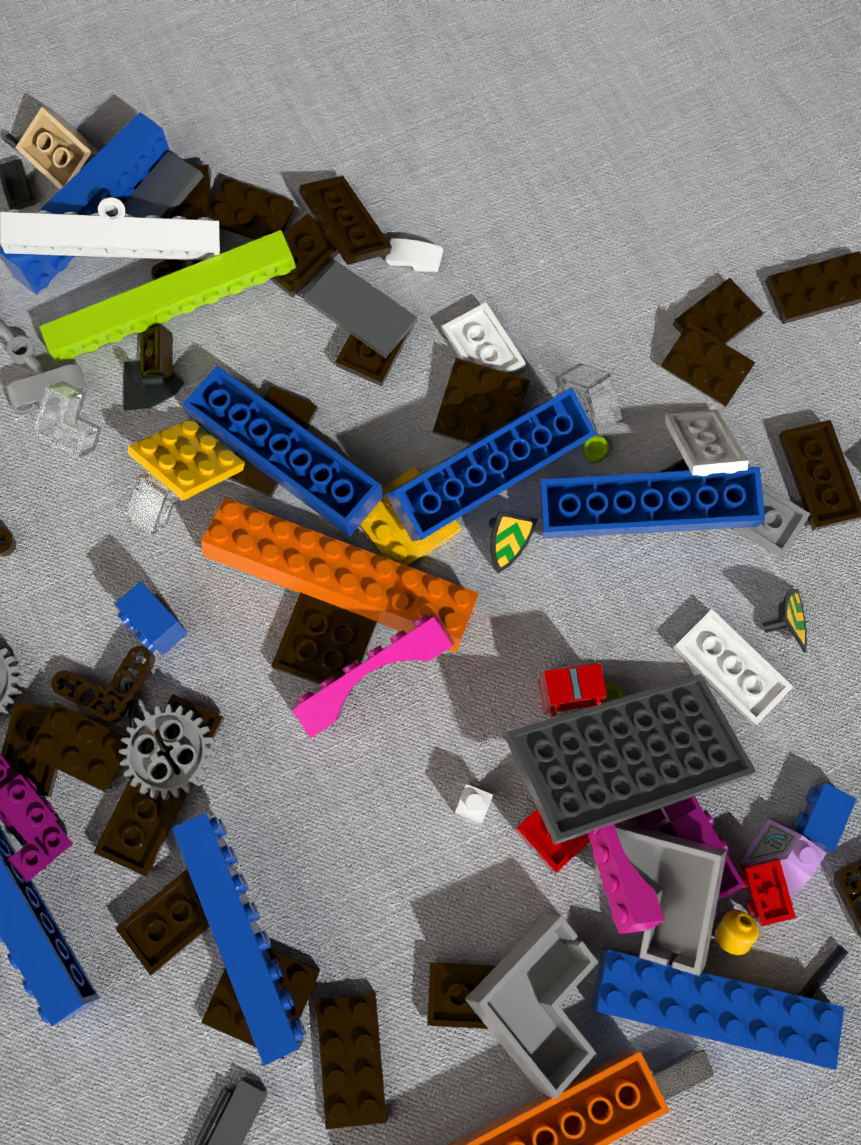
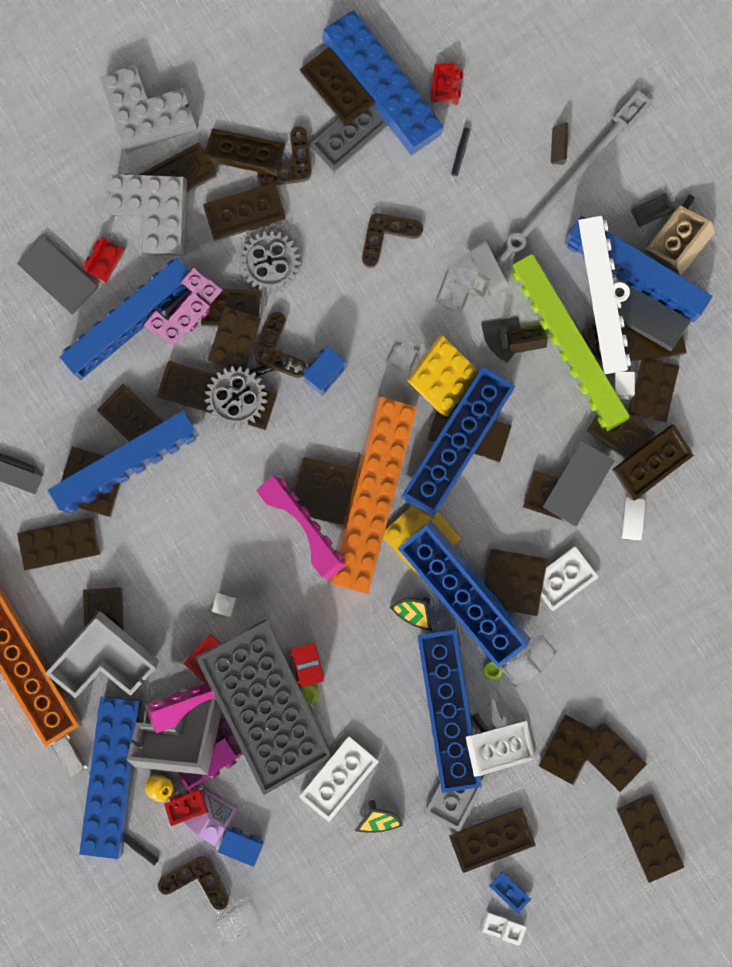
camera: 95 degrees right, 10 degrees up
(235, 236) = (624, 385): none -> white brick

